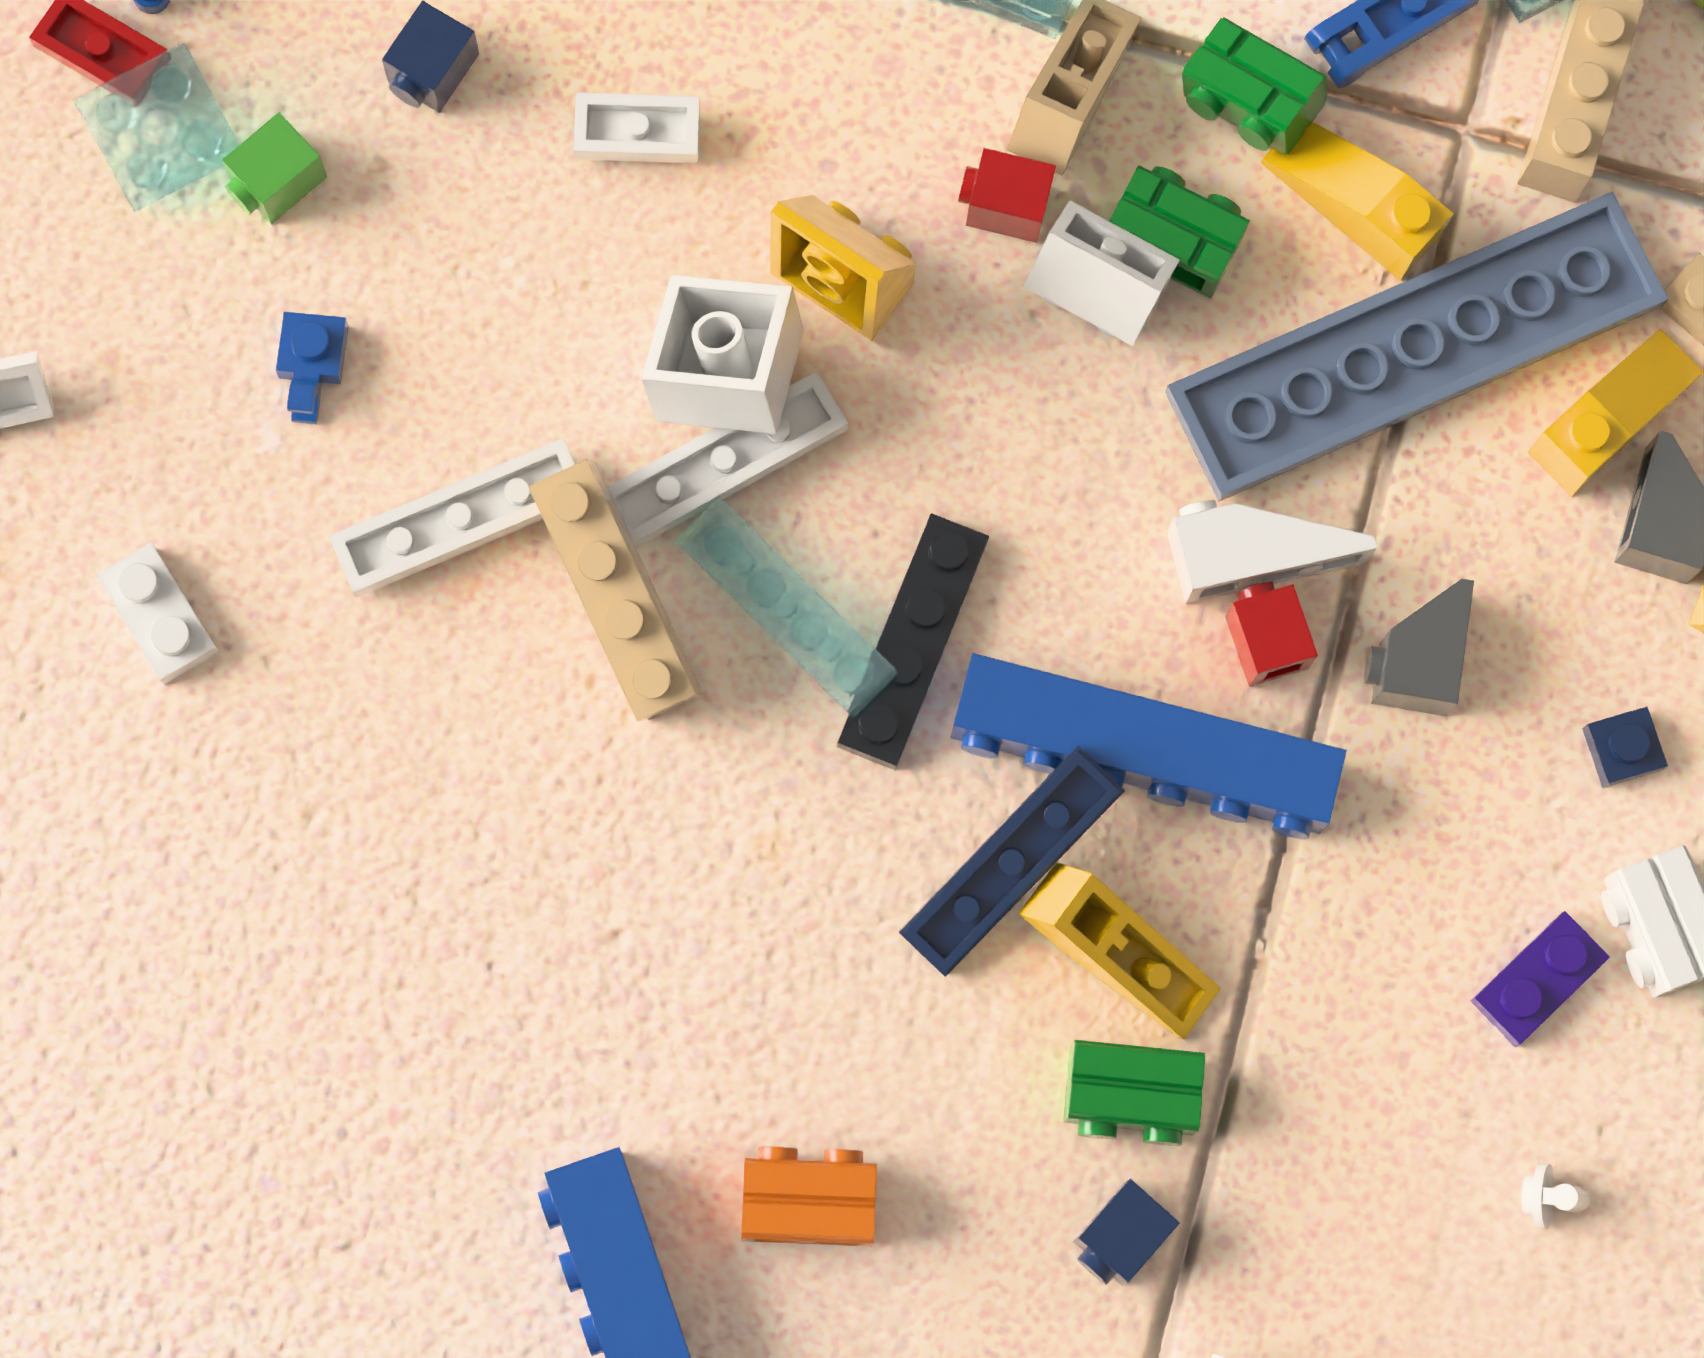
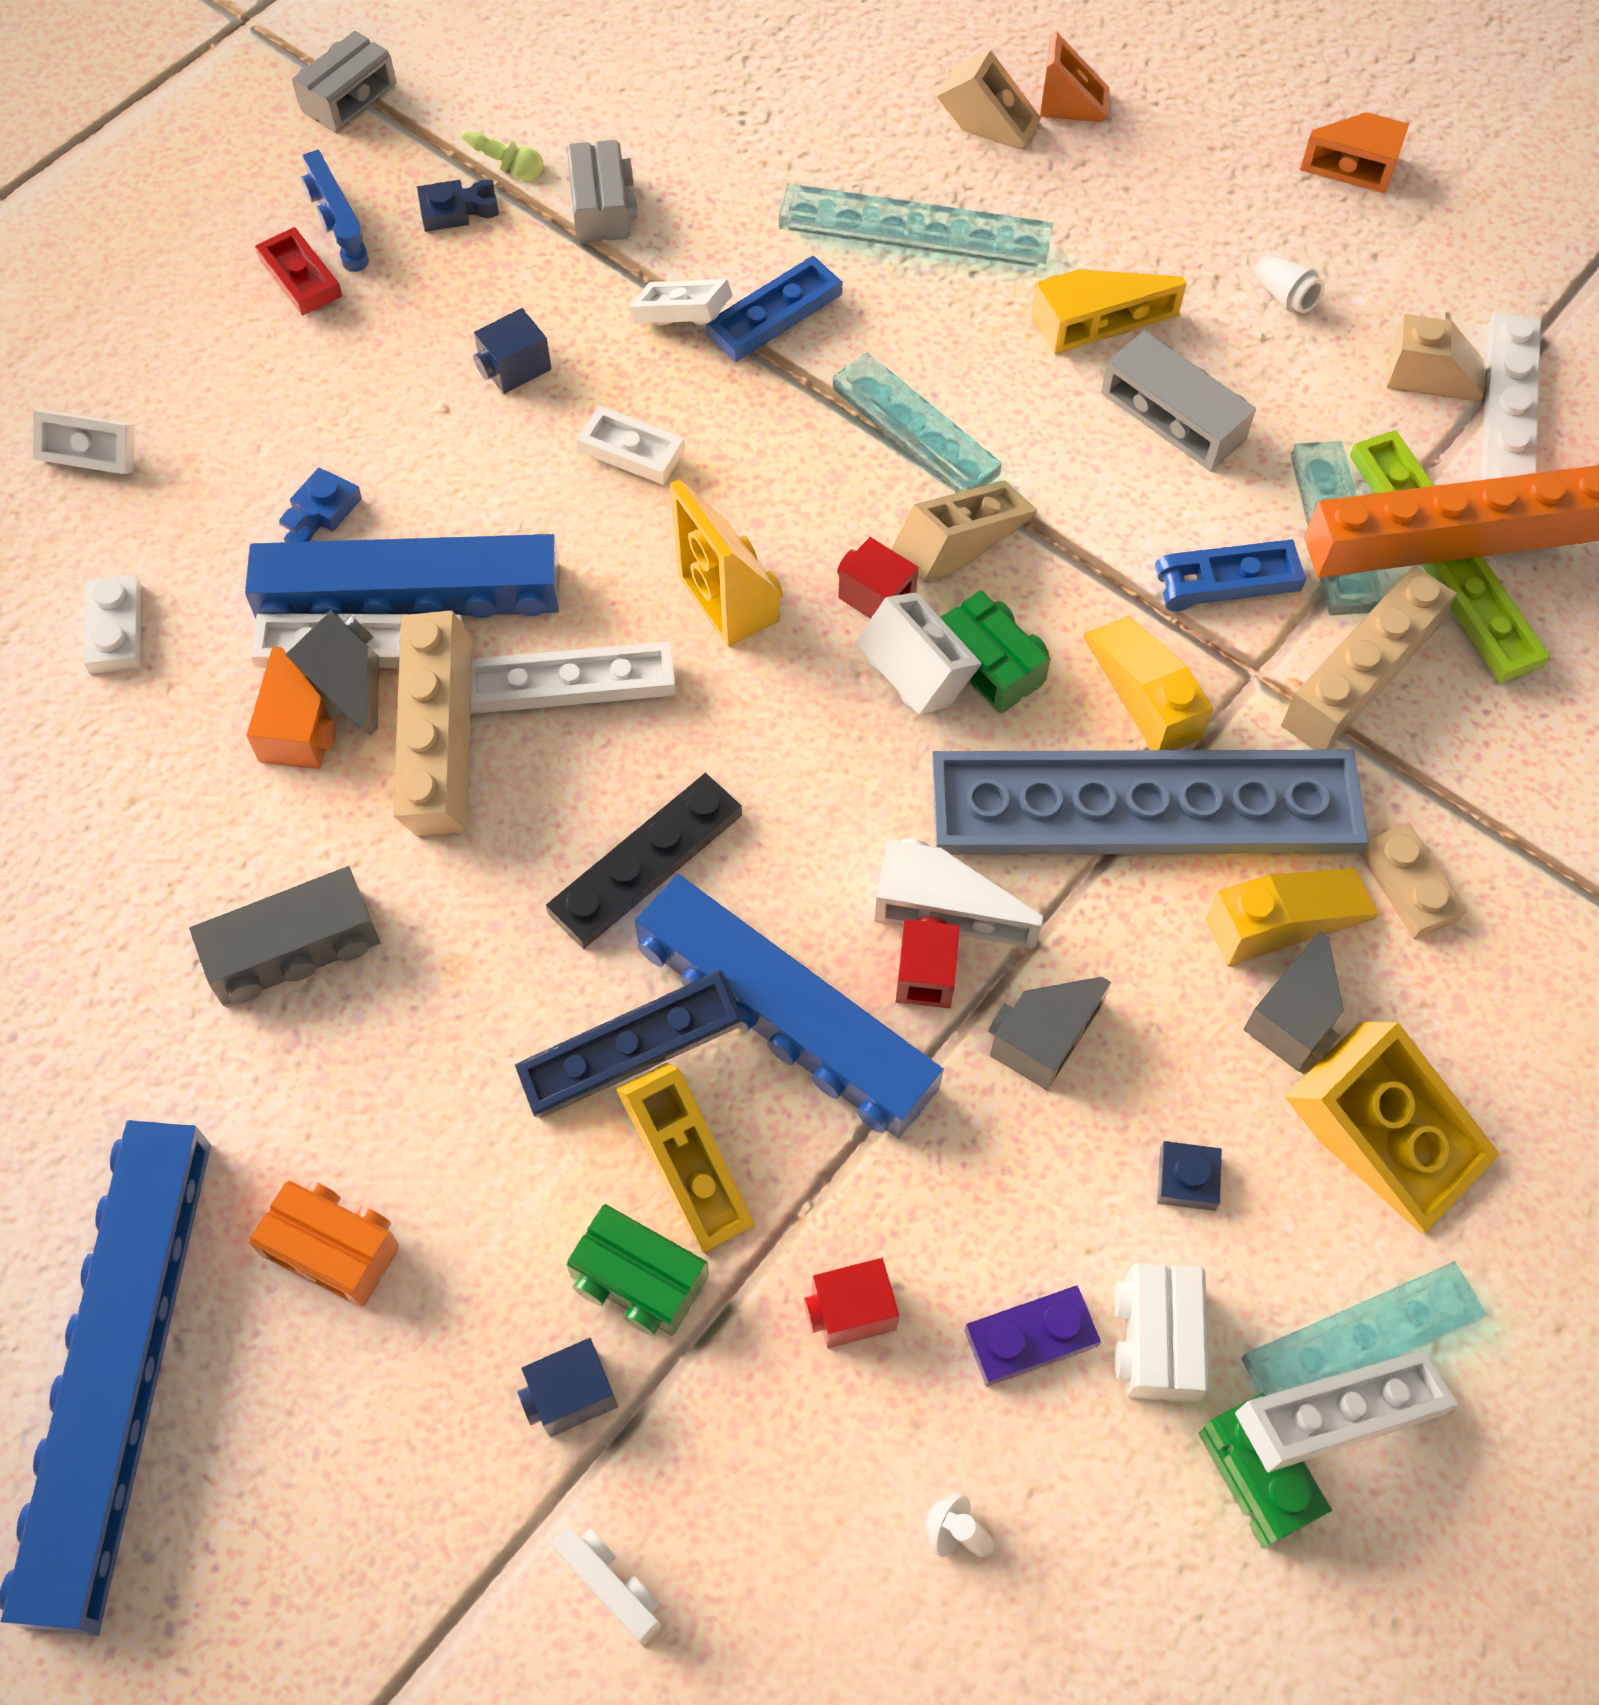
camera: 30 degrees right, 15 degrees down
(157, 126) = (302, 323): clear light blue plate -> none
(273, 169) = (364, 378): bright green brick -> none
(440, 643) = (289, 717): none -> orange slope
(470, 418) = (406, 576): none -> blue brick
(473, 566) = (342, 667): none -> dark grey slope
(583, 900) = (284, 936): none -> dark grey brick
(723, 354) = (603, 596): white brick -> none
(786, 607) = (558, 793): clear light blue plate -> none
(1253, 87) = (1098, 576): green brick -> none
(1358, 1027) = (852, 1303): none -> red brick

